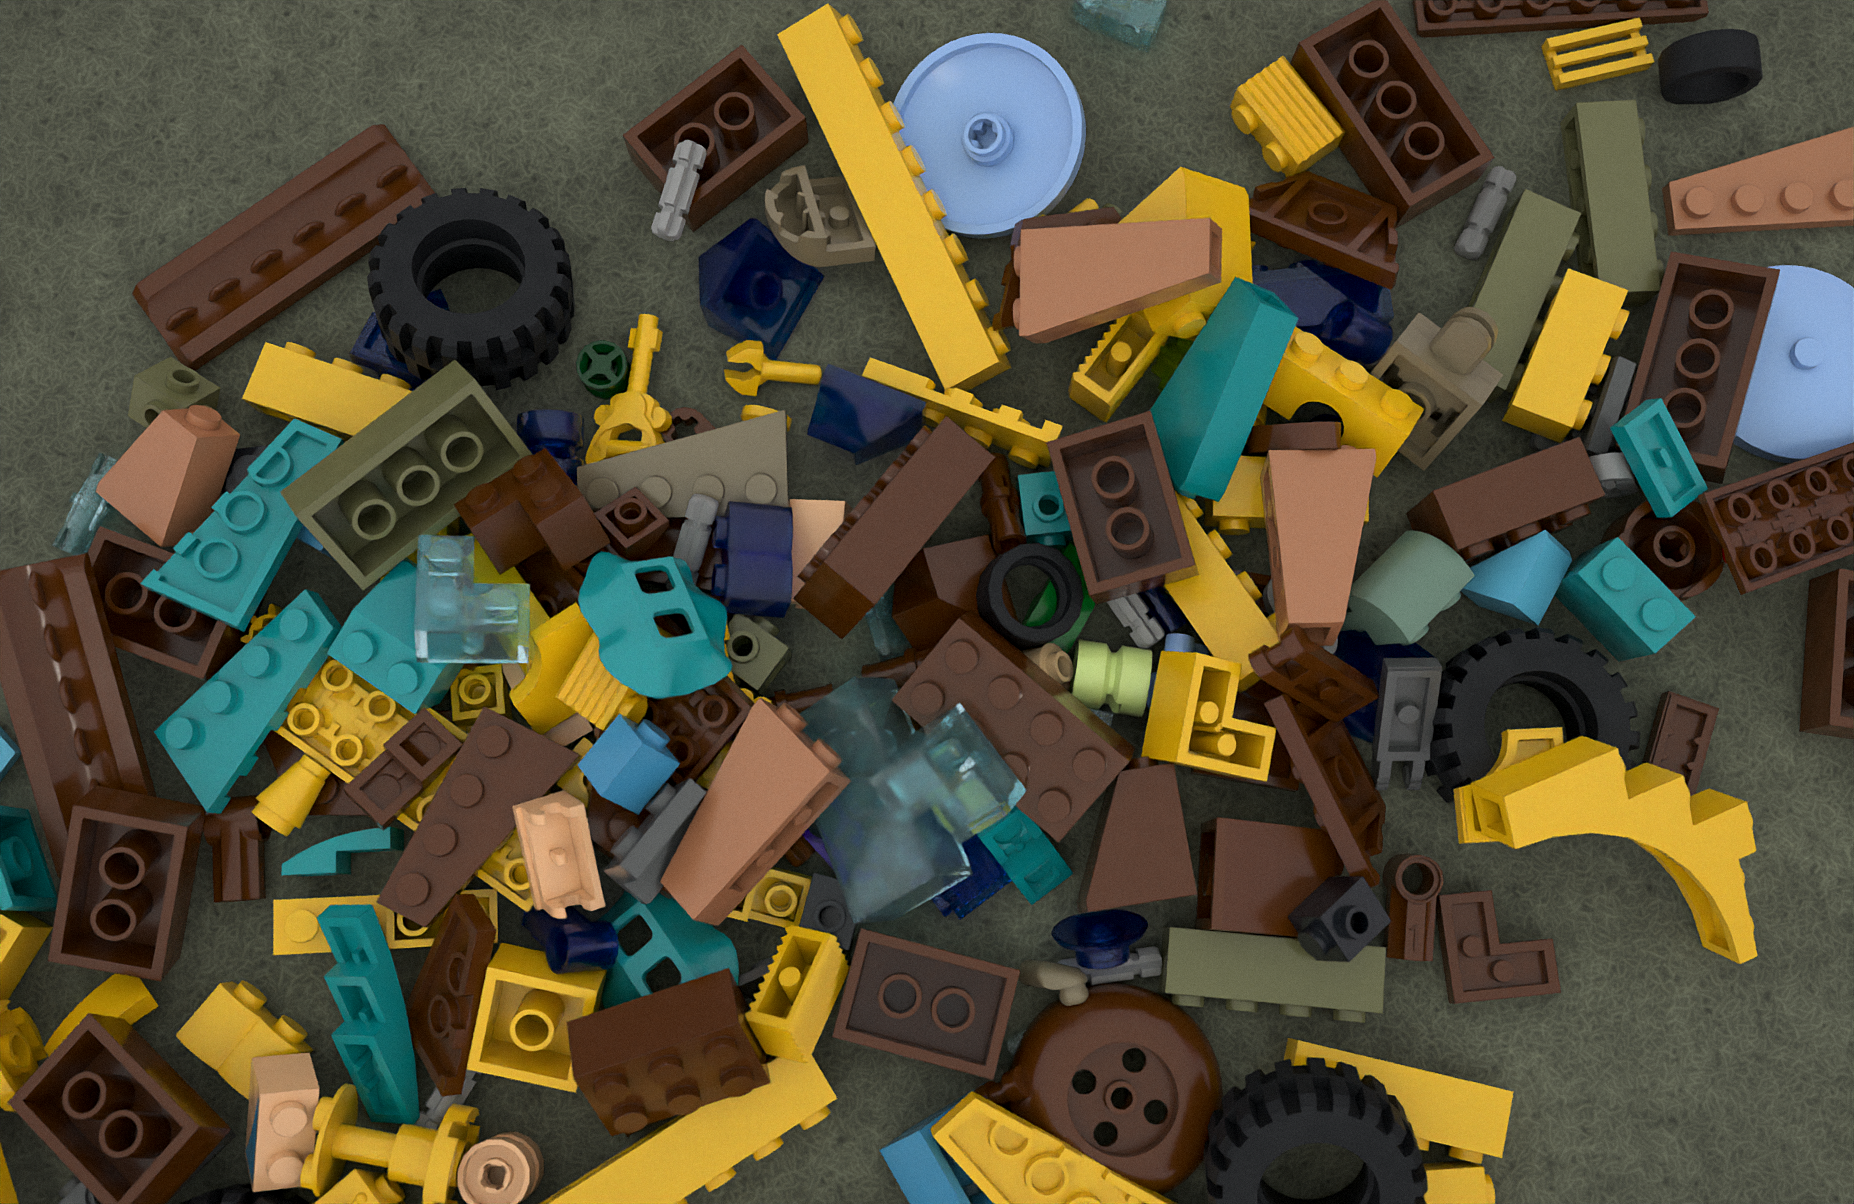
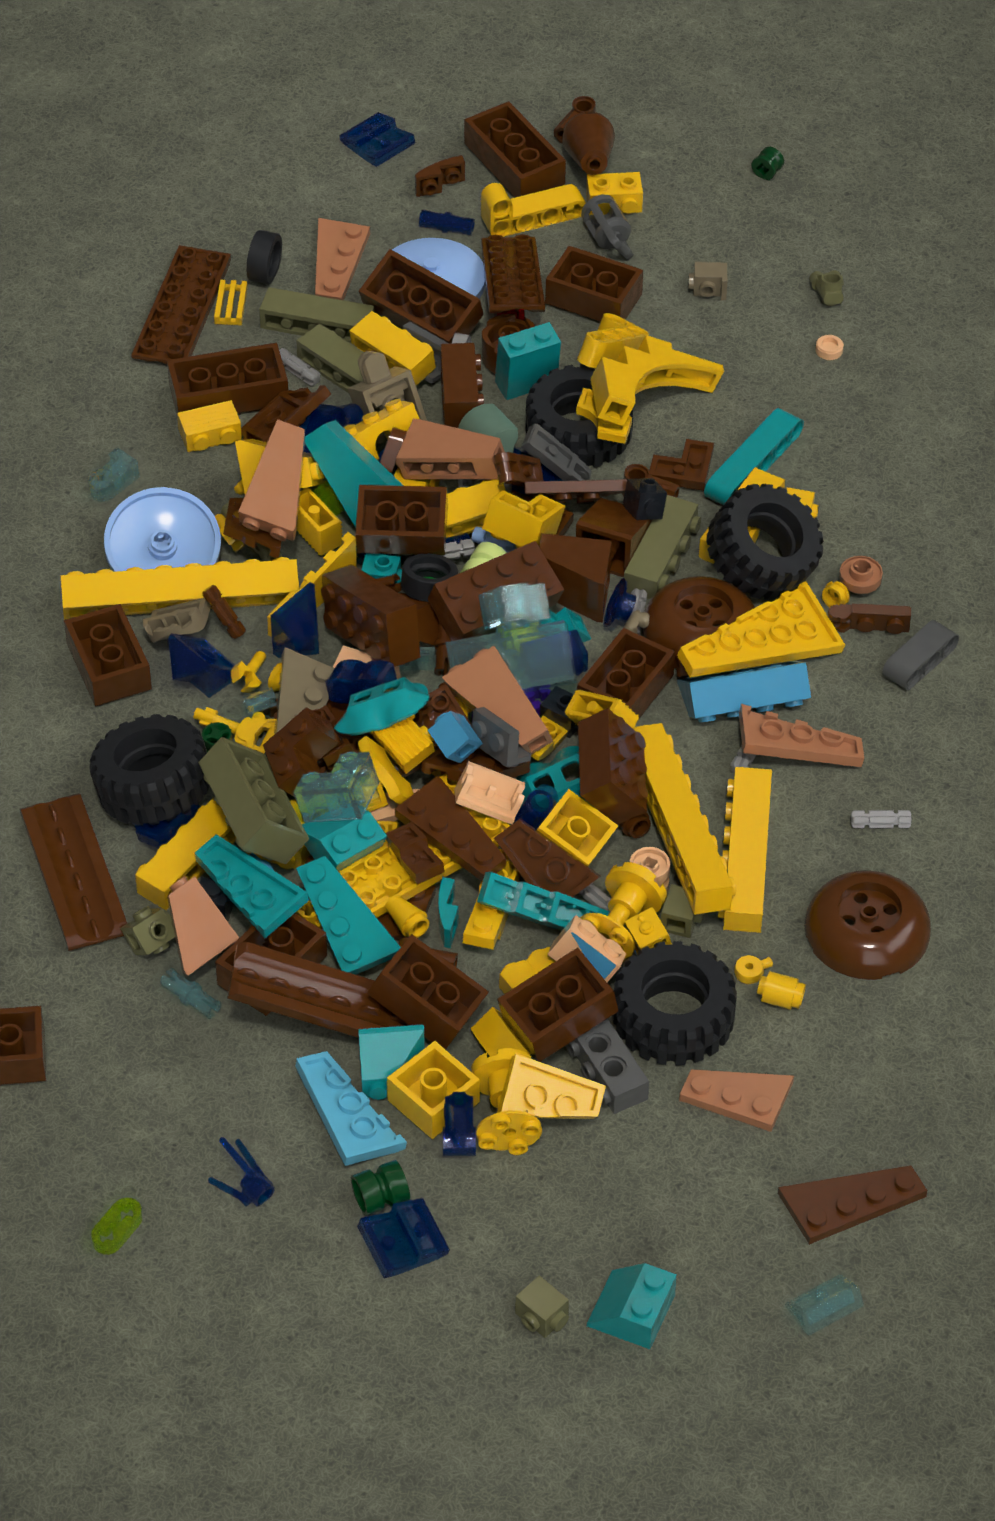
camera: 70 degrees left, 30 degrees down
(678, 190) = (140, 660): light grey axle -> none
(684, 404) = (259, 700): none -> clear light blue slope
(695, 533) = (335, 704): light grey axle -> none
(865, 285) = (224, 611): none -> reddish brown axle
(1520, 578) = (502, 393): medium azure slope -> none
(1556, 1076) = (757, 451): none -> teal beam
(1659, 458) = (464, 319): teal plate -> none
(1748, 754) = (609, 340): none -> yellow beam

